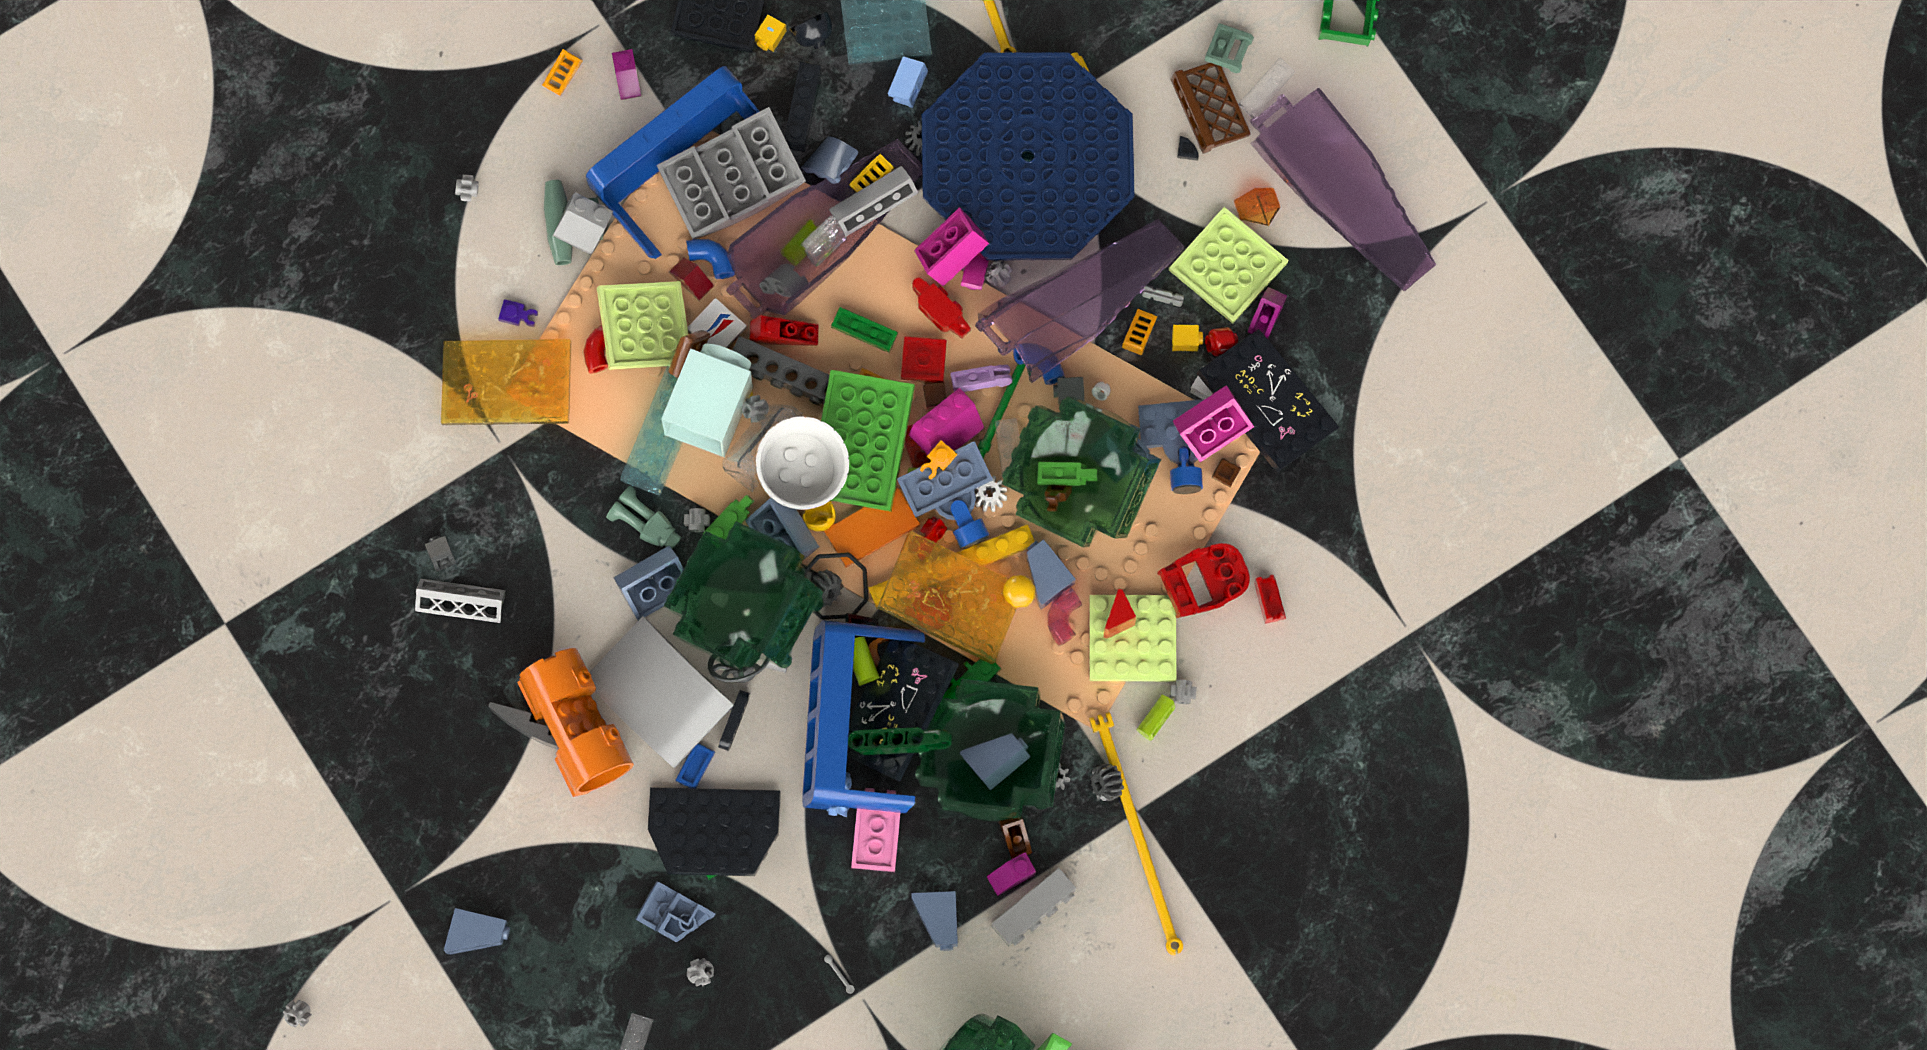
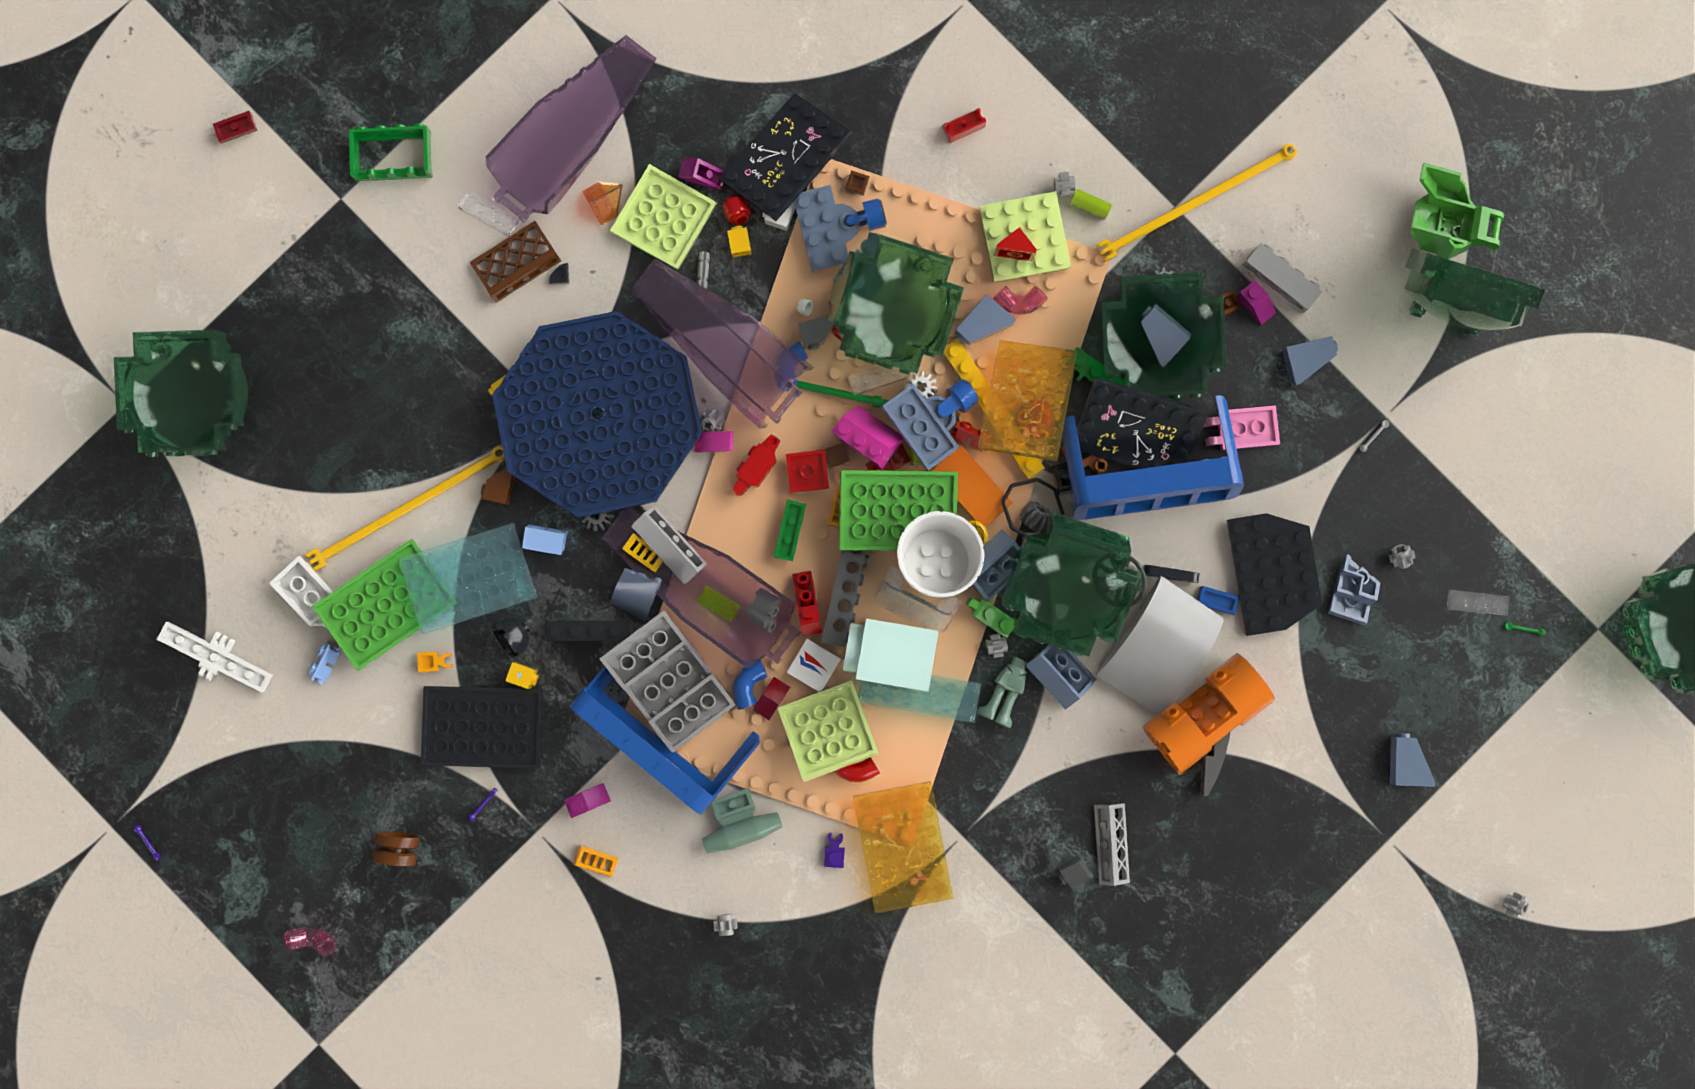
camera: 100 degrees left, 10 degrees up
(582, 223) = (742, 809): slope -> none
(691, 341) = (845, 685): dark orange brick -> none
(755, 408) = (890, 611): light grey gear -> none
(823, 241) = (717, 582): clear plate -> none
(863, 662) = (1105, 464): lime brick -> none
(931, 740) = (1175, 383): dark green piece -> none
(941, 457) = (903, 433): light orange plate -> none
(951, 247) = (699, 466): dark pink slope -> none
(969, 44) = (498, 488): none -> reddish brown slope
(981, 378) = (815, 417): lavender hinge -> none
(1019, 591) = (1007, 342): yellow hair -> none
(1056, 494) = (911, 325): reddish brown plate -> none
(1065, 474) = (892, 322): bright green hinge -> none
(1106, 782) = (1160, 234): dark grey gear -> none
(1132, 346) = (752, 294): light orange slope -> none
(1213, 423) = (822, 195): dark pink slope -> none
(1221, 570) = (950, 169): red slope -> none
(1222, 45) = (457, 260): sand green plate -> none

